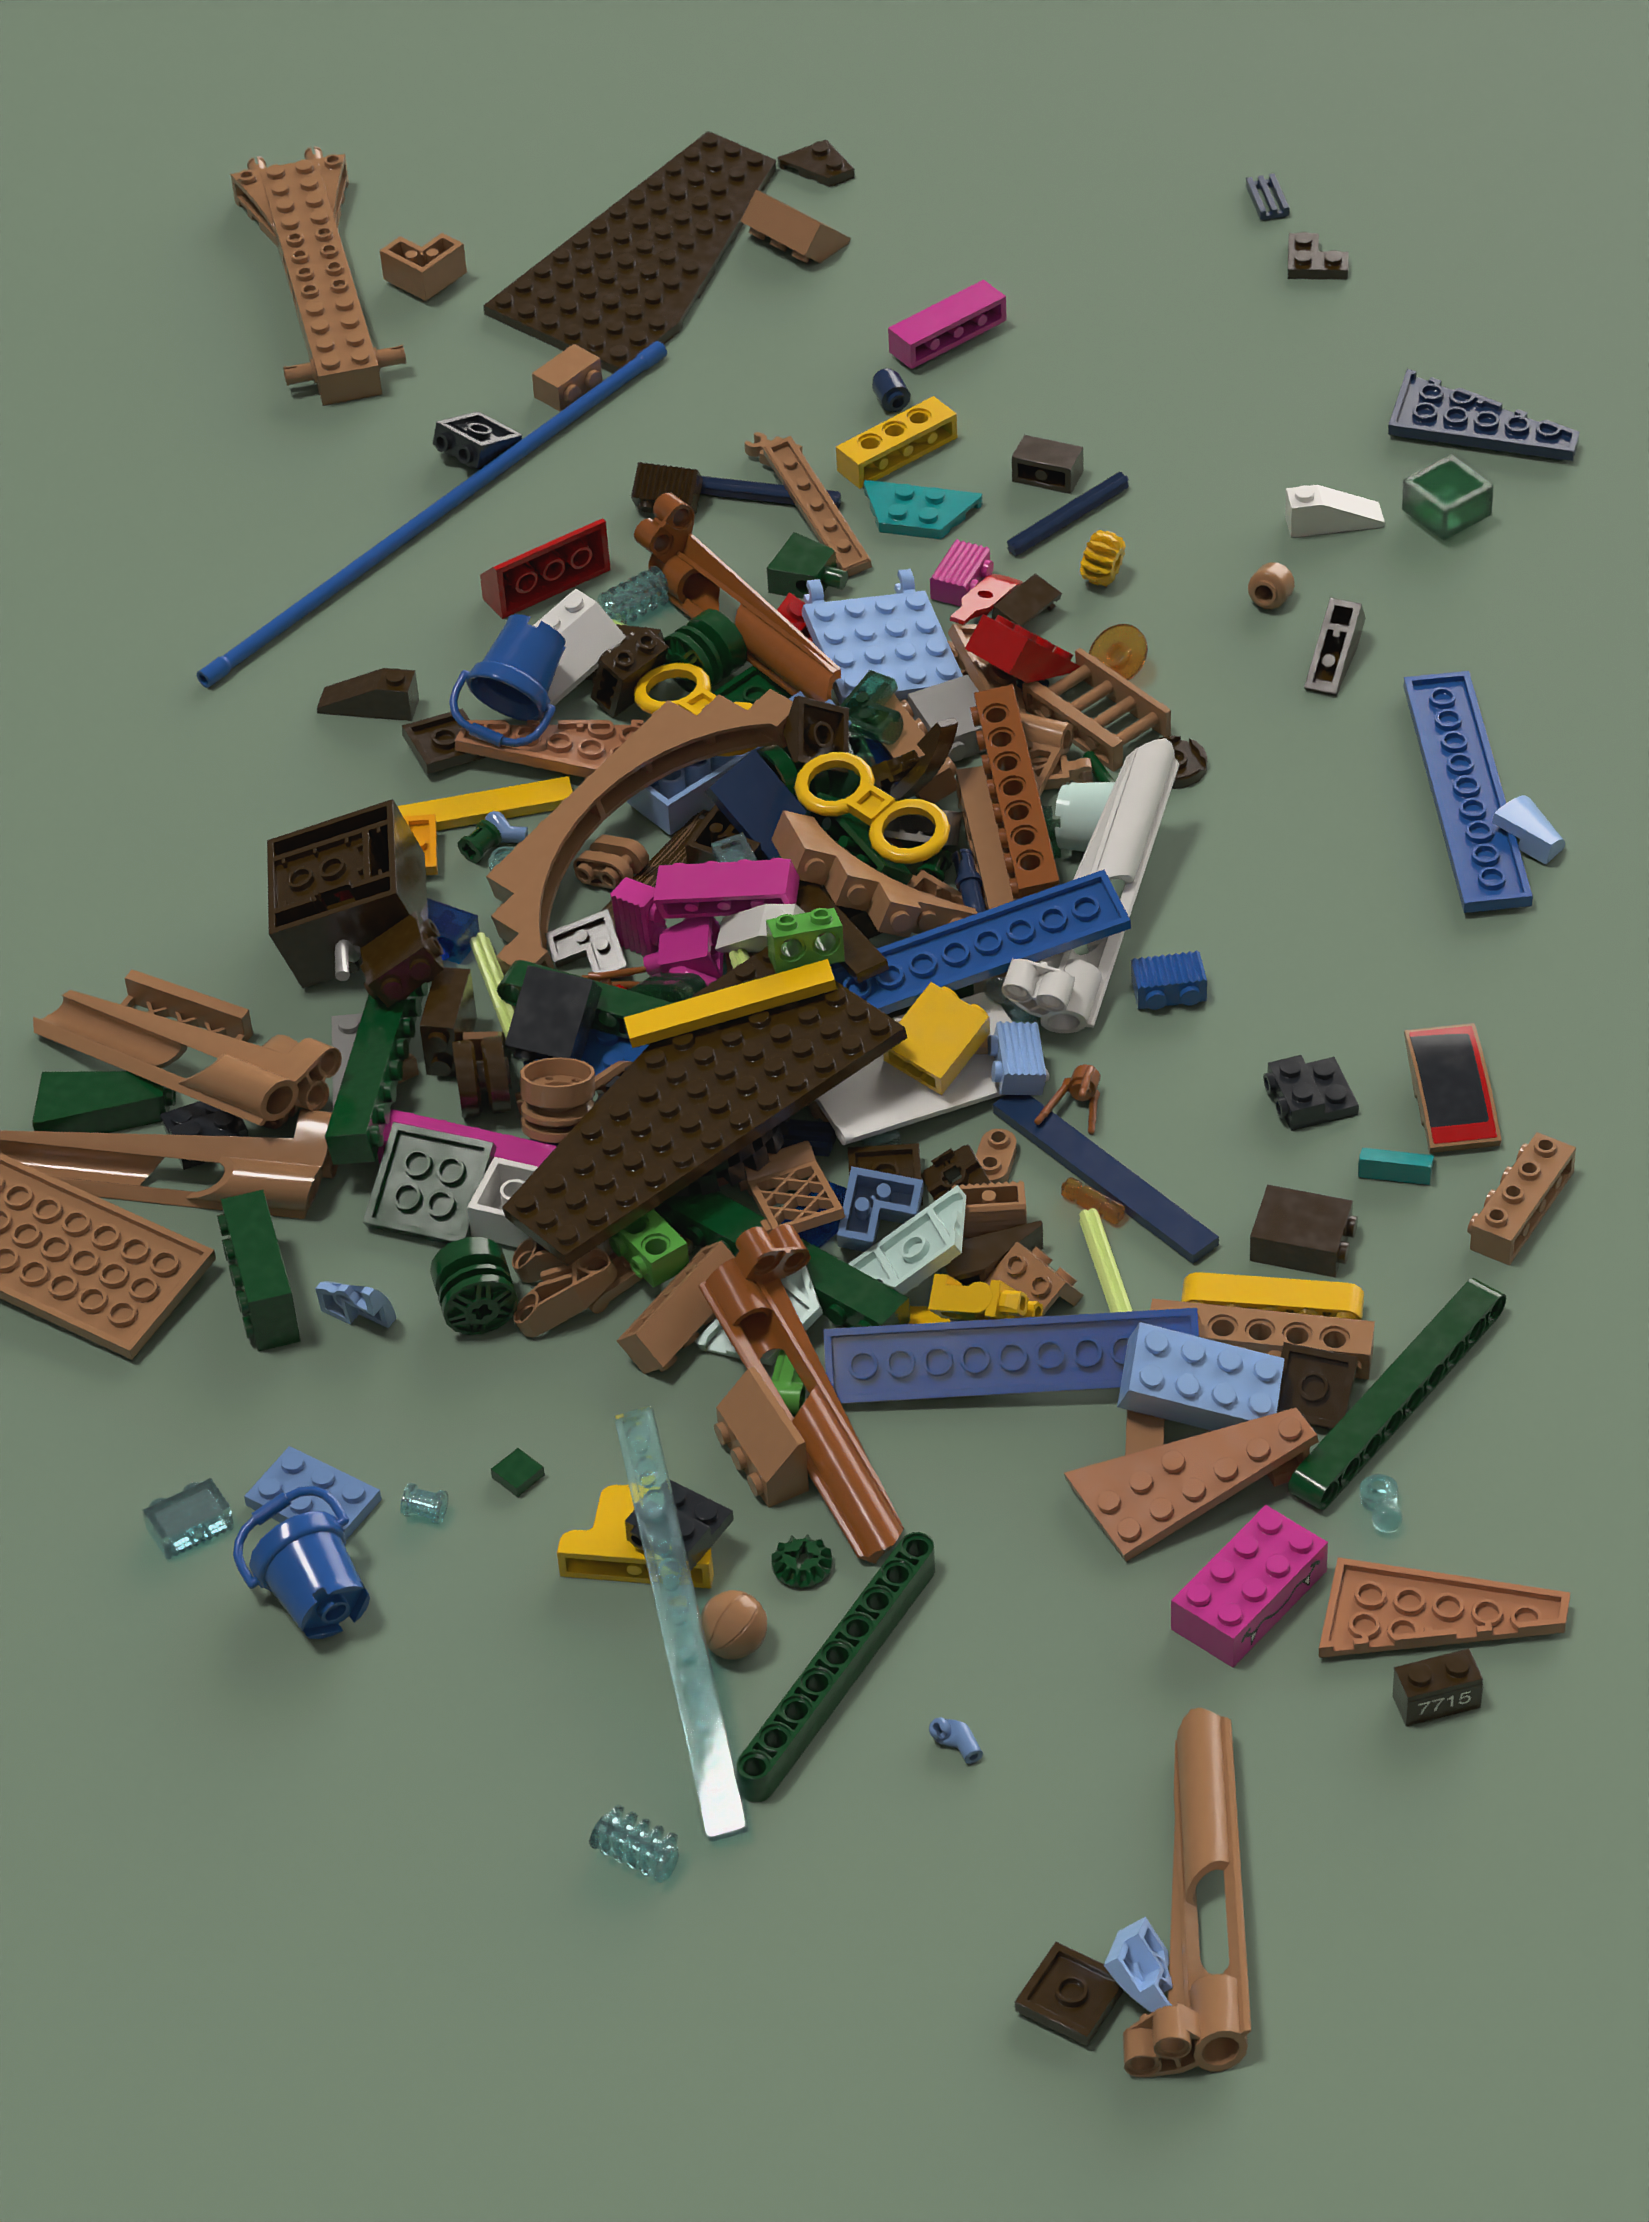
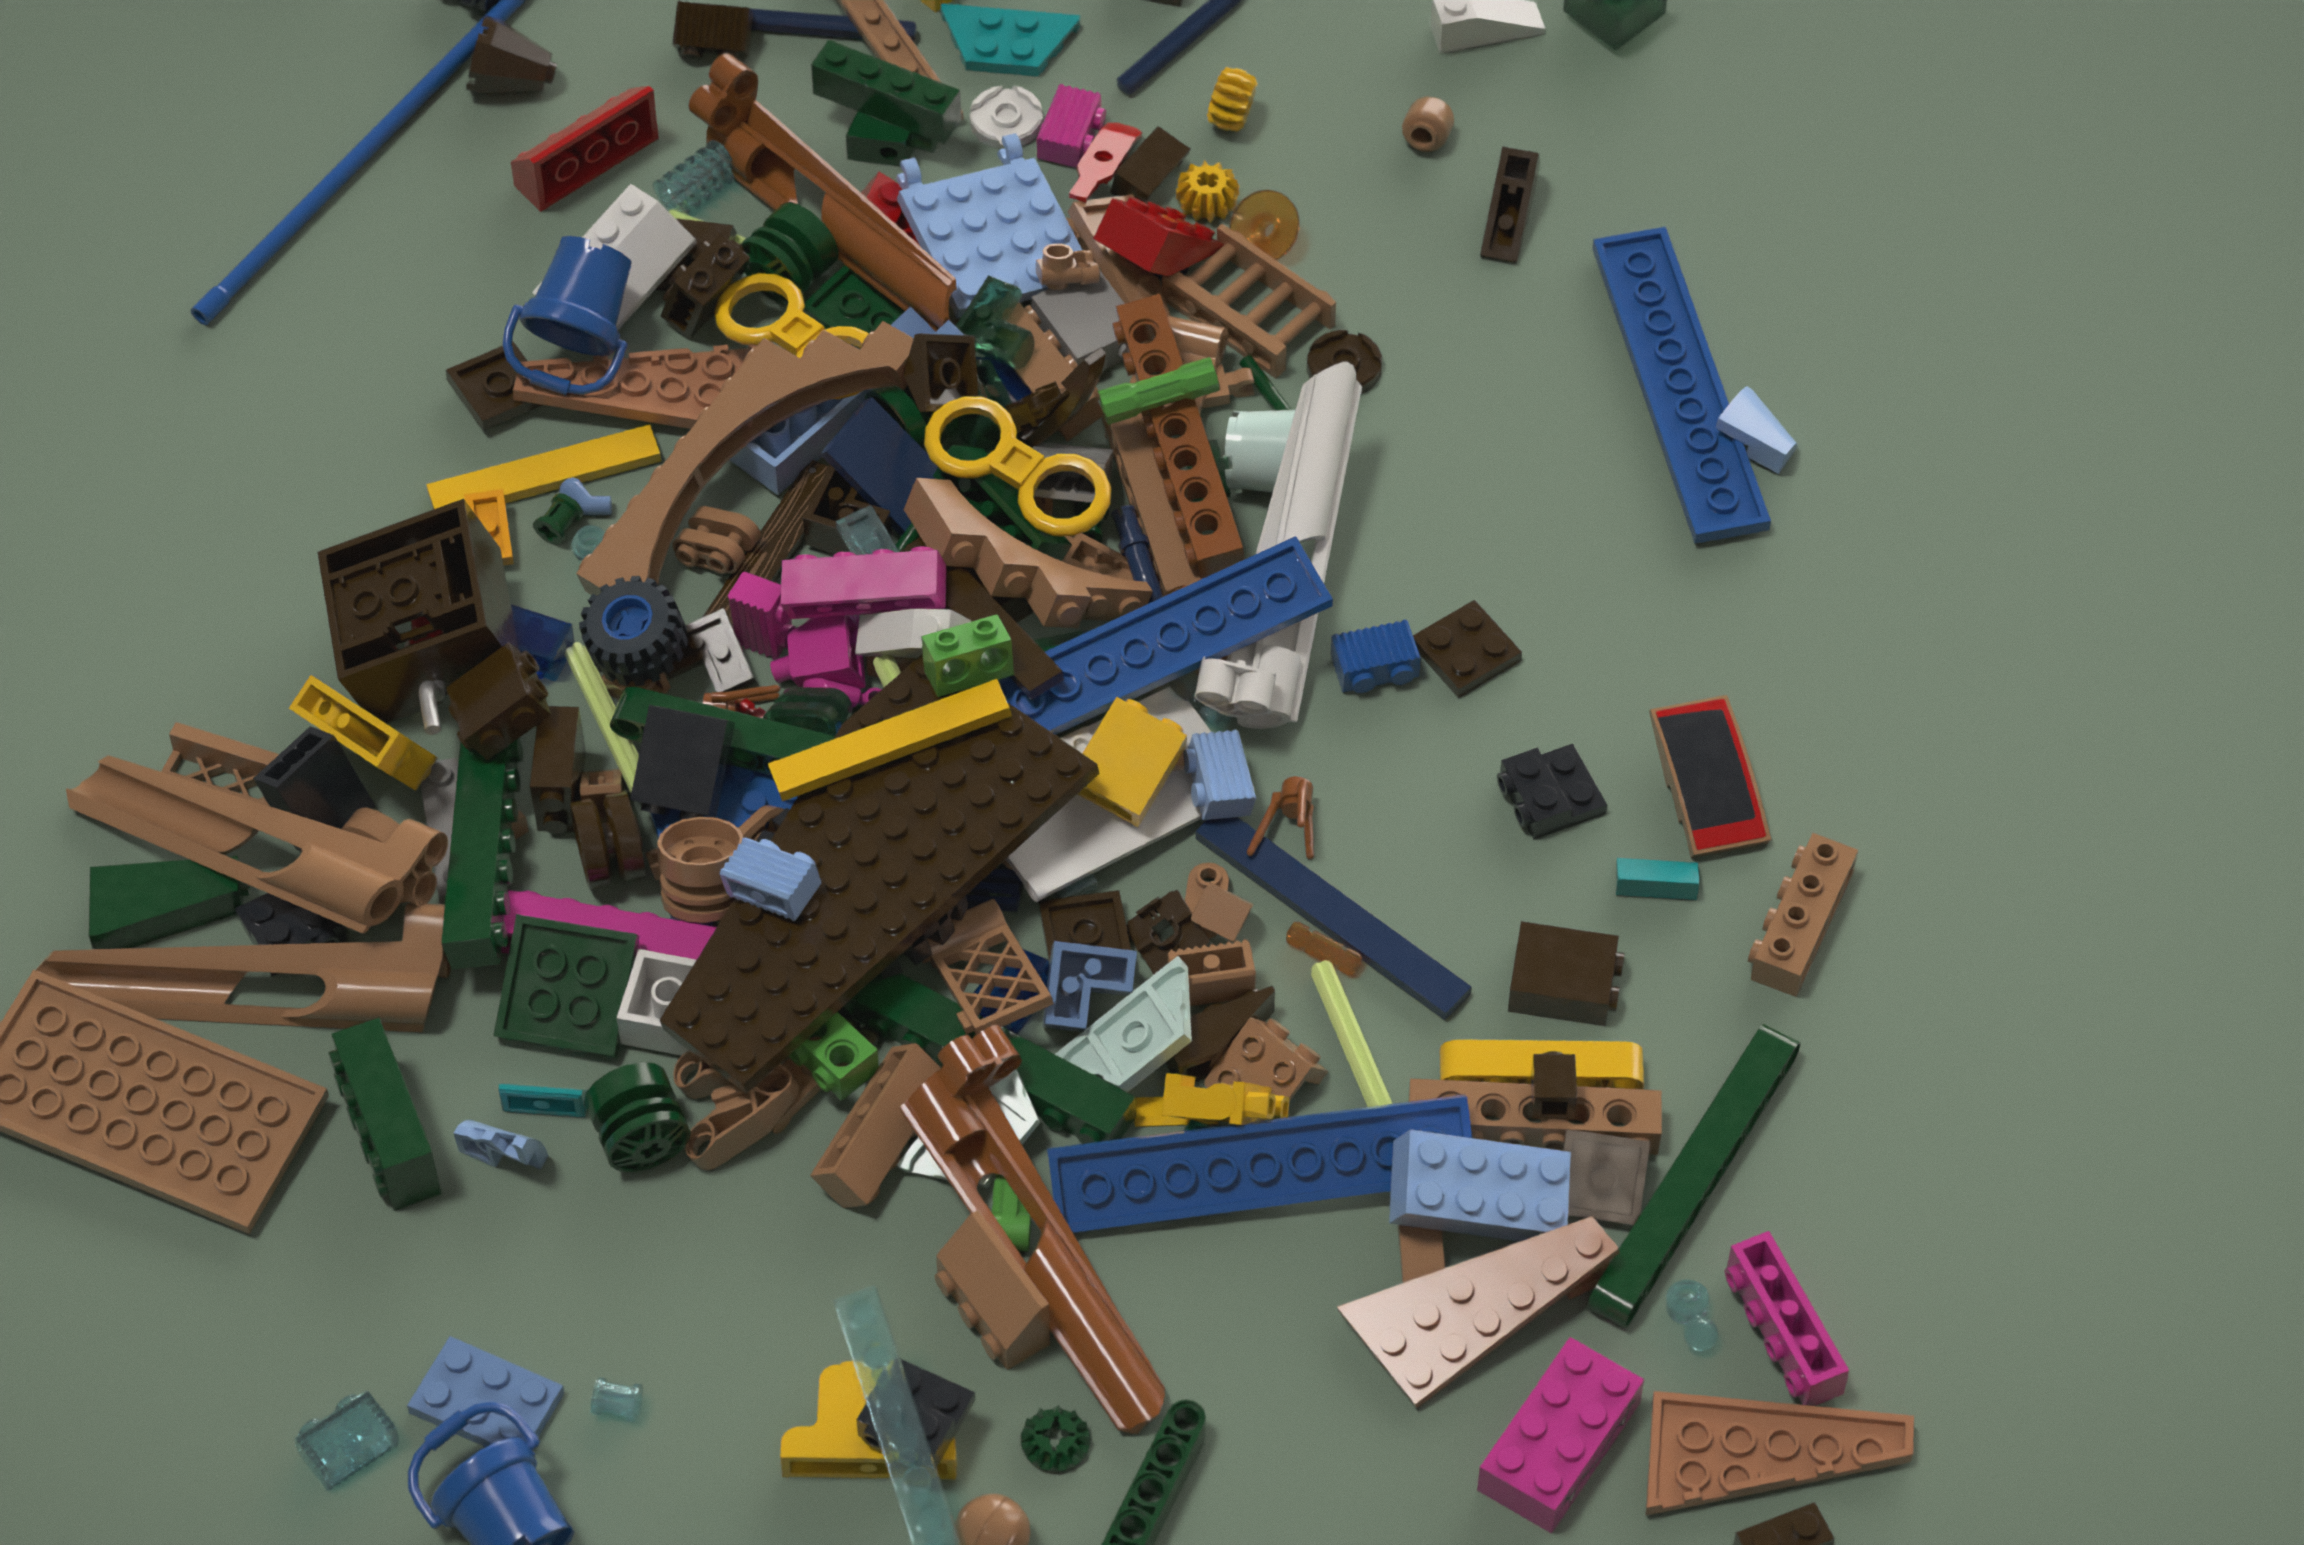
camera: 10 degrees left, 10 degrees up
(238, 1010) = (314, 781): none -> black brick
(288, 982) = (363, 733): none -> yellow brick
(377, 694) = (403, 328): dark brown slope -> none
(396, 1272) = (542, 1100): none -> teal slope
(490, 503) = (508, 61): none -> dark brown cone
(517, 1472) = (716, 1348): dark green tile -> none
(526, 916) = (633, 631): none -> black wheel
(611, 1099) = (770, 877): none -> light blue brick
(804, 534) = (886, 91): none -> dark green brick
(920, 559) = (1003, 113): none -> white tile
(934, 669) = (1064, 266): none -> medium nougat plate
(1005, 1161) = (1221, 912): none -> medium nougat panel
(1025, 749) = (1130, 399): none -> bright green axle
(1072, 626) = (1207, 191): none -> yellow gear
(1251, 981) = (1466, 648): none -> dark brown plate
(1276, 1308) = (1553, 1085): none -> dark brown brick
(1463, 1508) = (1786, 1320): none -> dark pink brick

